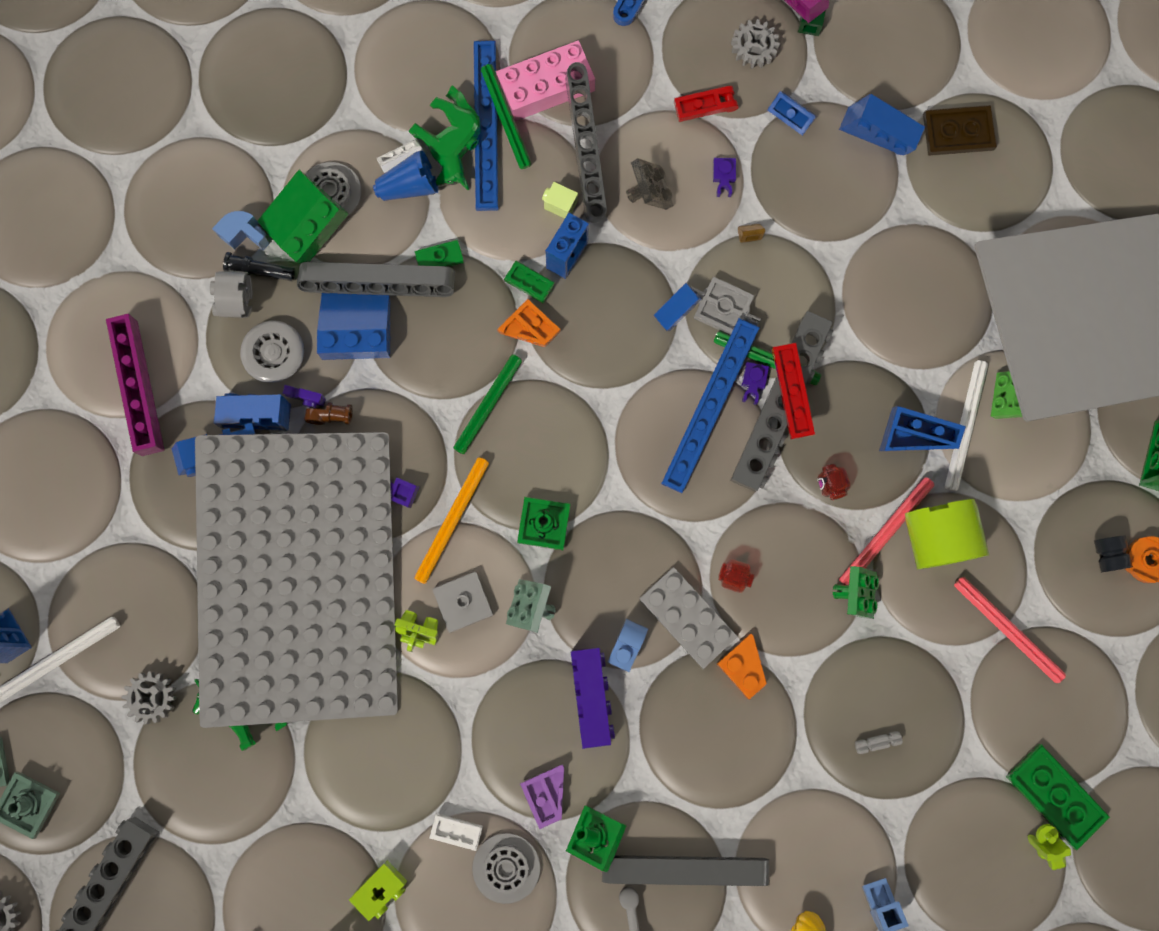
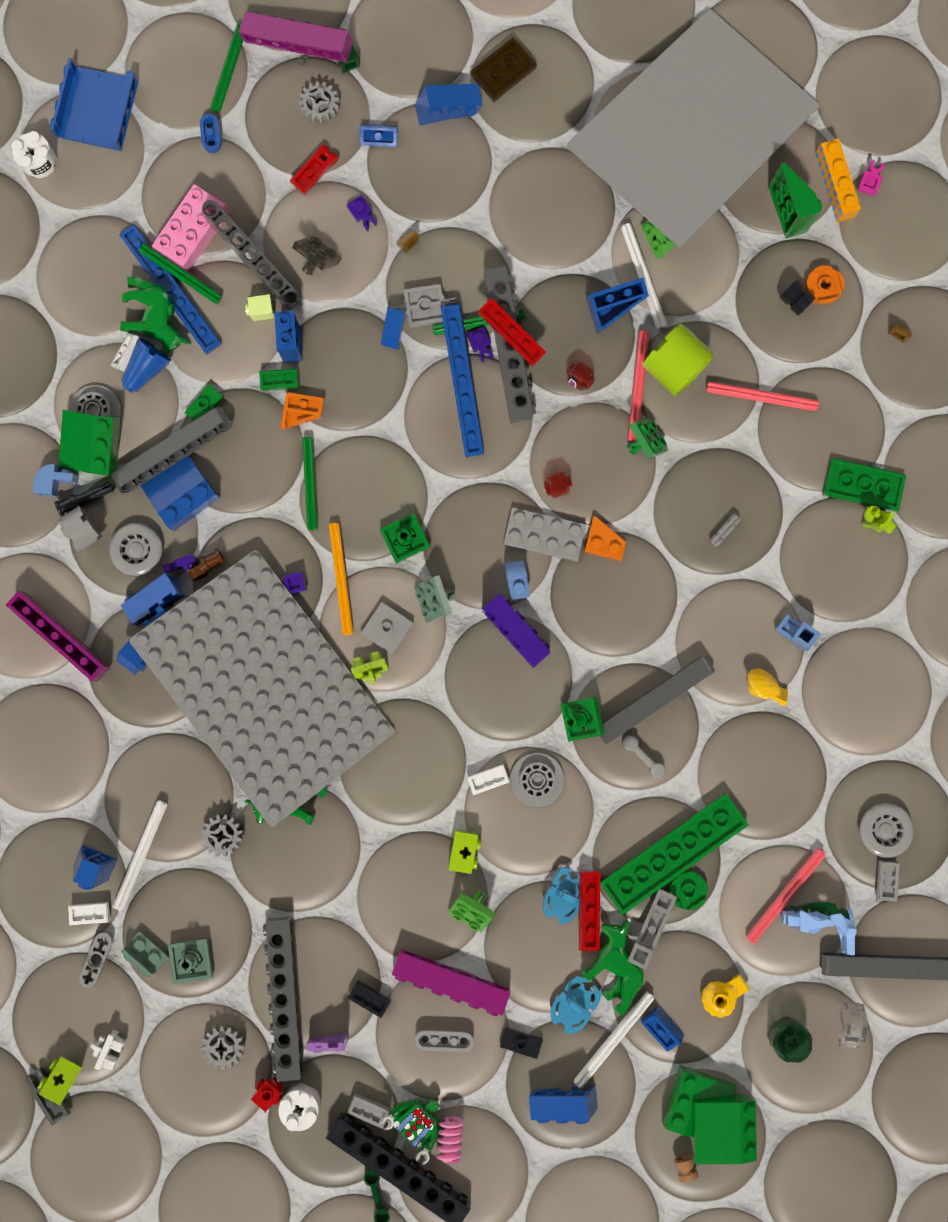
camera: 30 degrees left, 5 degrees up
(545, 796) = (530, 715): medium lavender wing -> none

